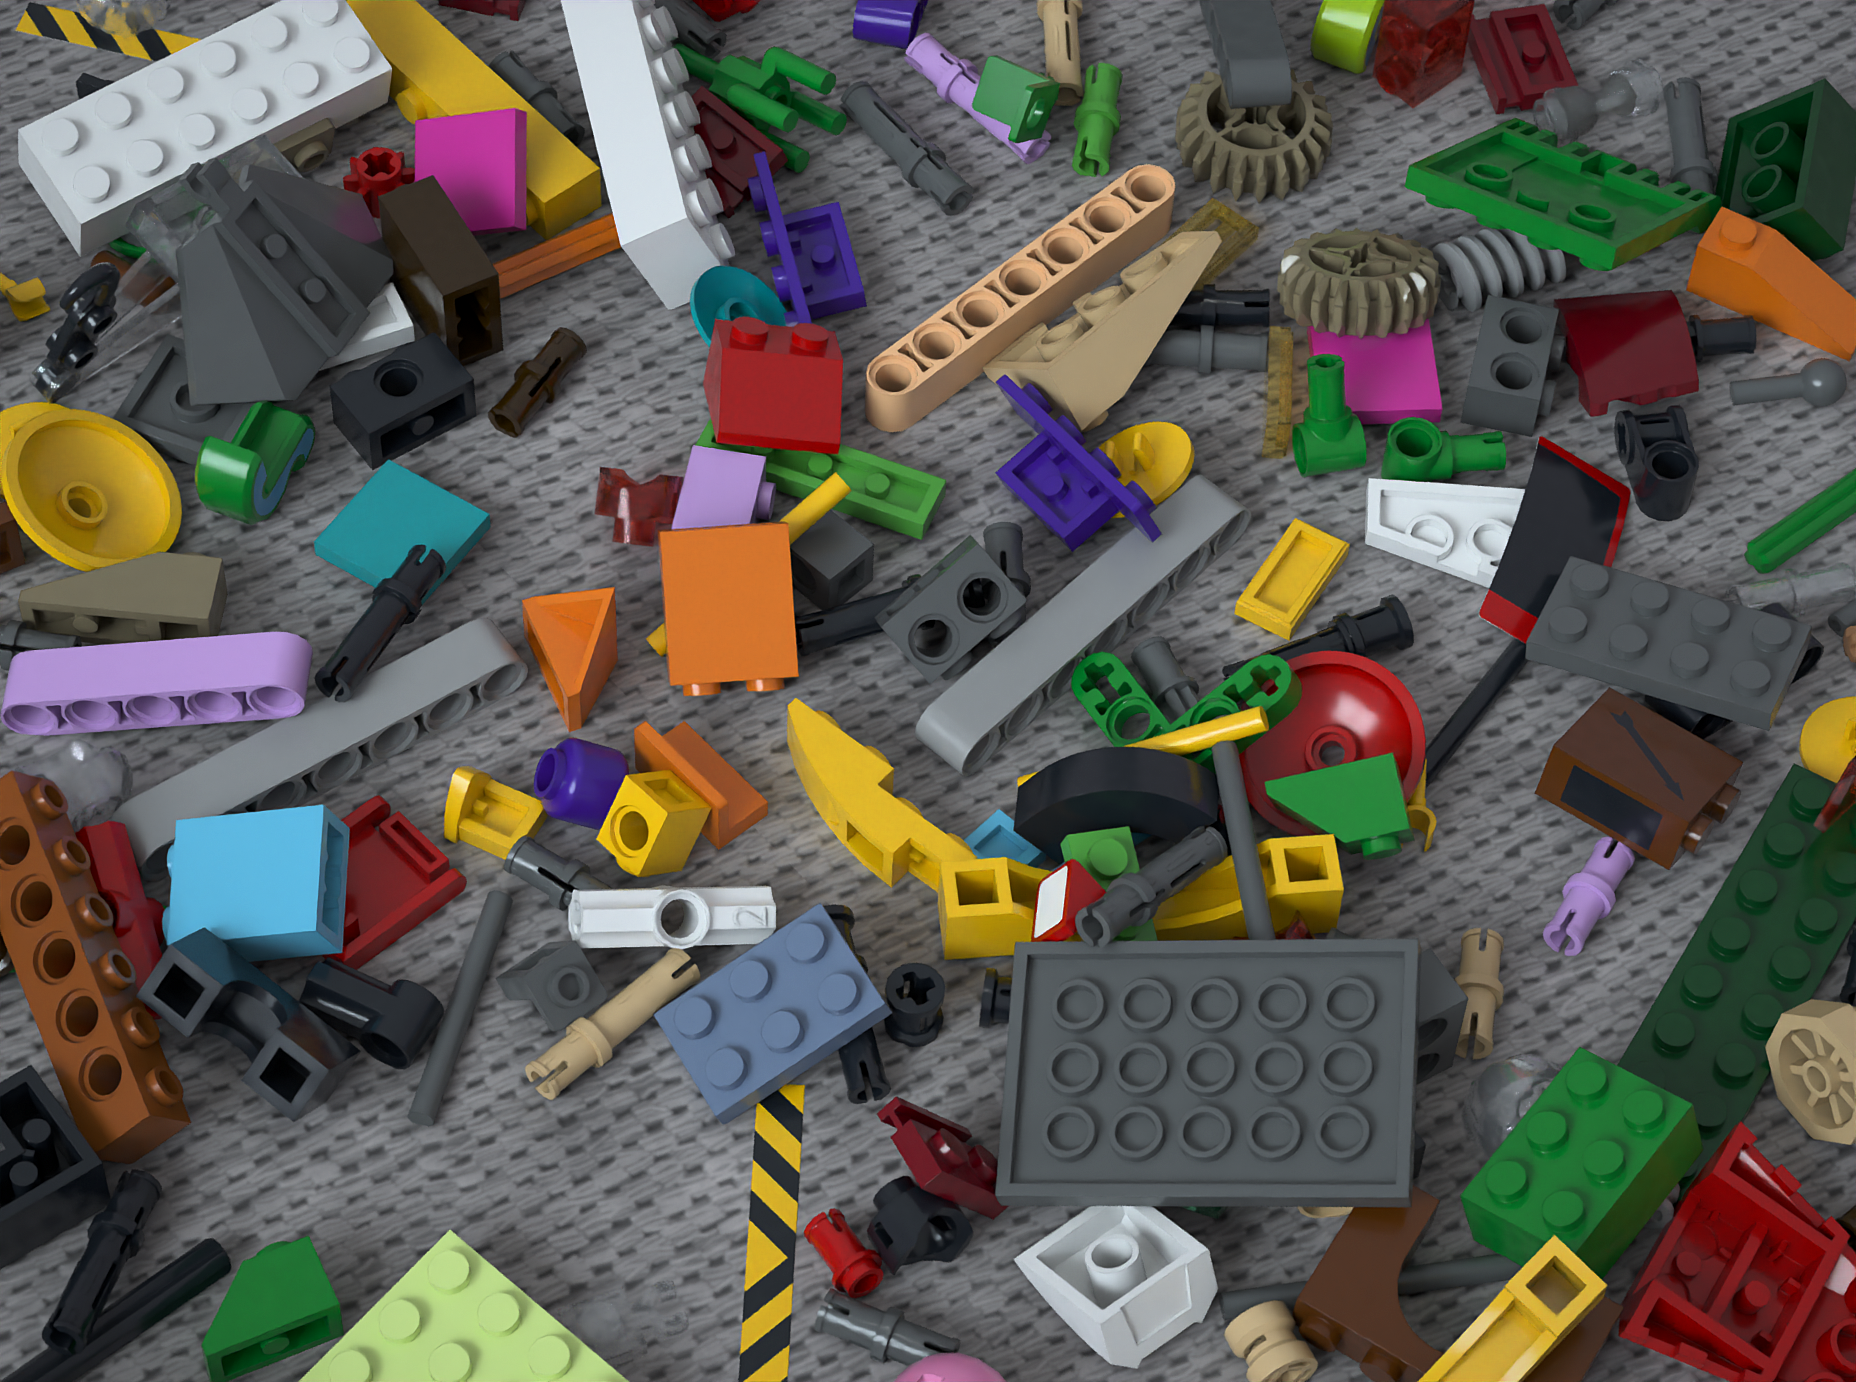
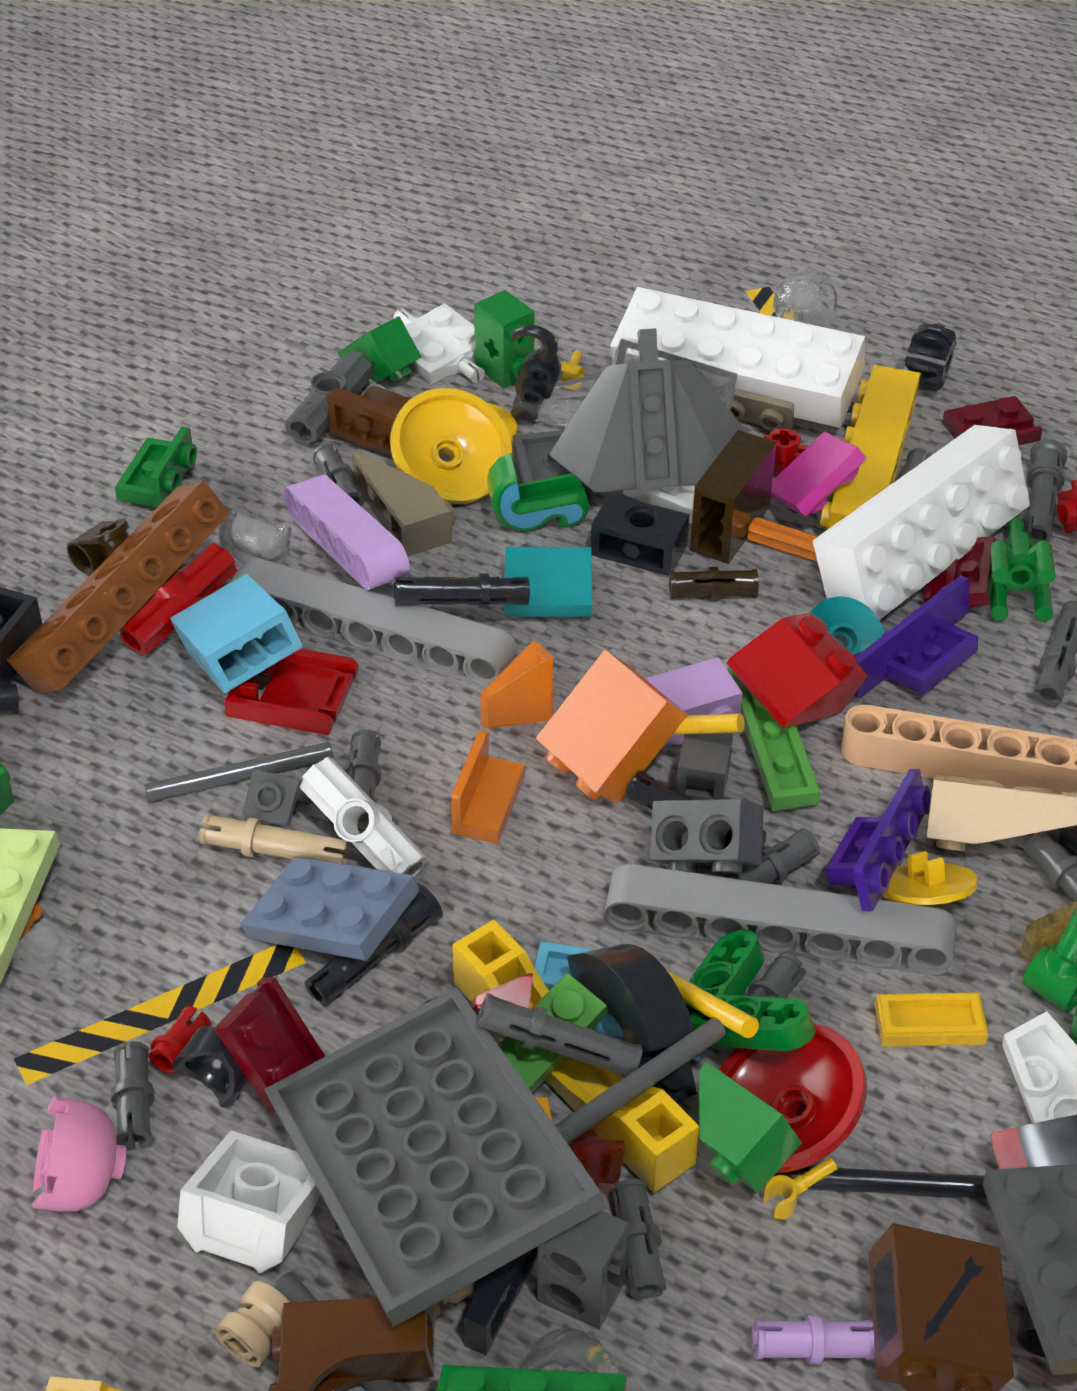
camera: 60 degrees right, 10 degrees down
(217, 991) = (134, 706): black arch -> none
(385, 1018) = (201, 734): black piece -> none
(489, 812) = (386, 710): yellow tile -> none
(579, 781) = (433, 738): dark purple head -> none
(636, 505) = (657, 657): clear red piece -> none
(653, 823) = (424, 779): yellow brick -> none
(856, 800) = (536, 872): yellow slope -> none
(923, 1000) = (396, 979): black bush -> none
(1360, 634) = (901, 1070): black pin -> none
(1485, 992) = (665, 1307): tan pin -> none

